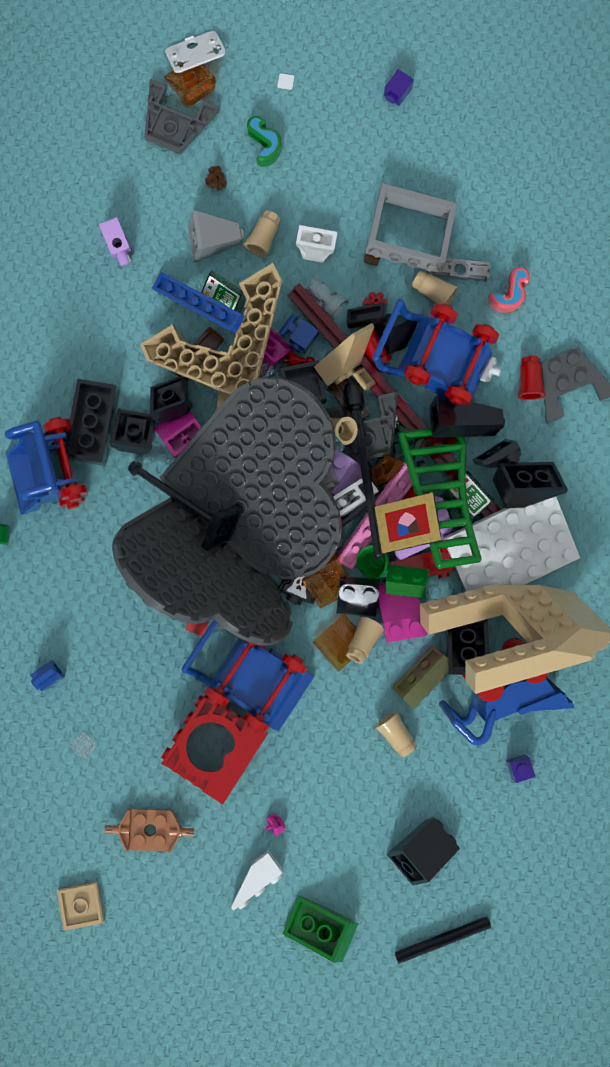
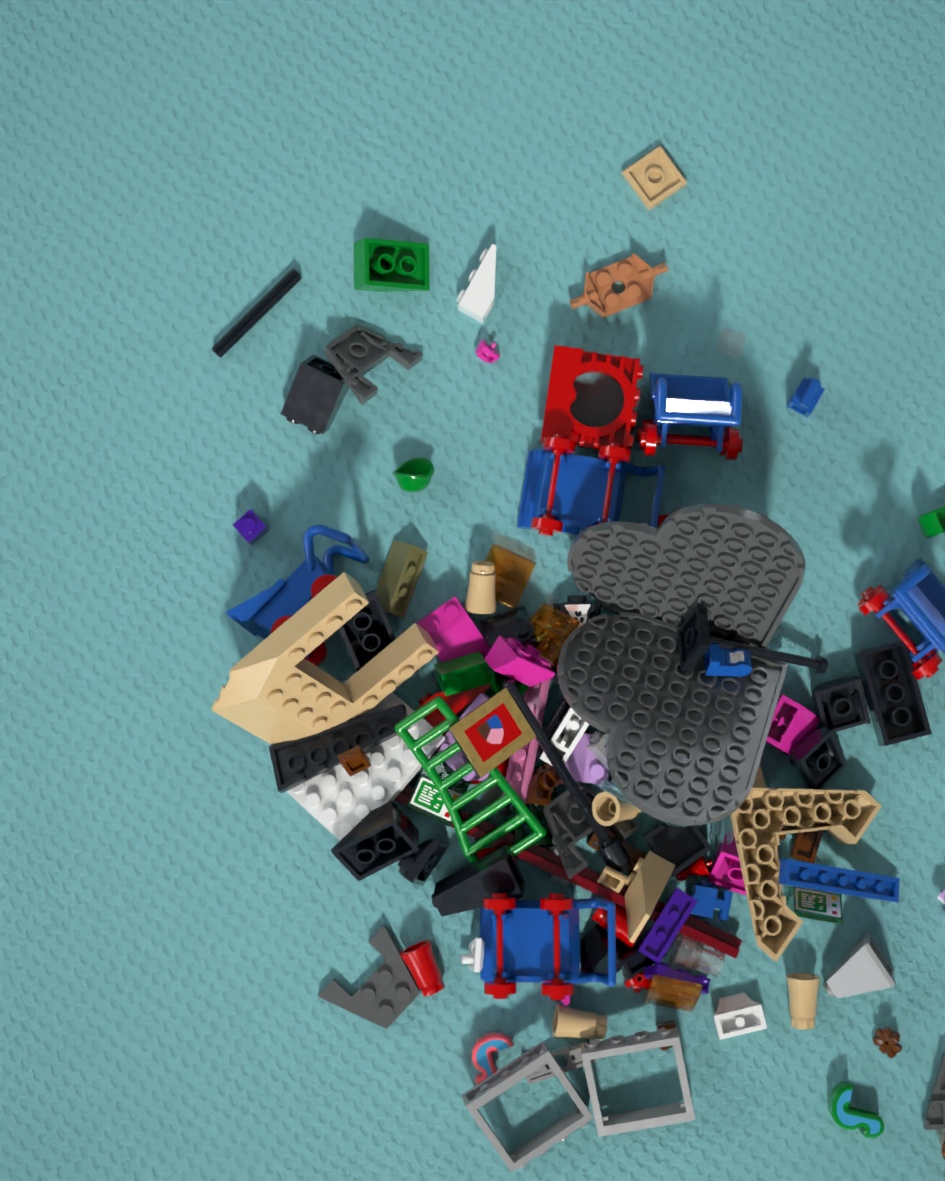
camera: 160 degrees right, 0 degrees up
(137, 708) = (693, 402): none -> blue piece
(204, 498) = (727, 661): none -> blue leg
(338, 327) = (667, 925): none -> dark purple plate
(347, 287) = (663, 969): none -> dark purple hinge
(356, 278) = (672, 993): none -> clear orange slope
(362, 569) = (518, 662): none -> dark pink slope
(374, 870) = (359, 352): none -> dark grey wing
(376, 752) = (414, 474): none -> green helmet
(396, 734) = (401, 504): tan plant -> none
(503, 271) = (506, 1078): none -> light grey window
(519, 551) = (354, 760): none -> reddish brown tile
(548, 570) = (310, 756): none -> black wing

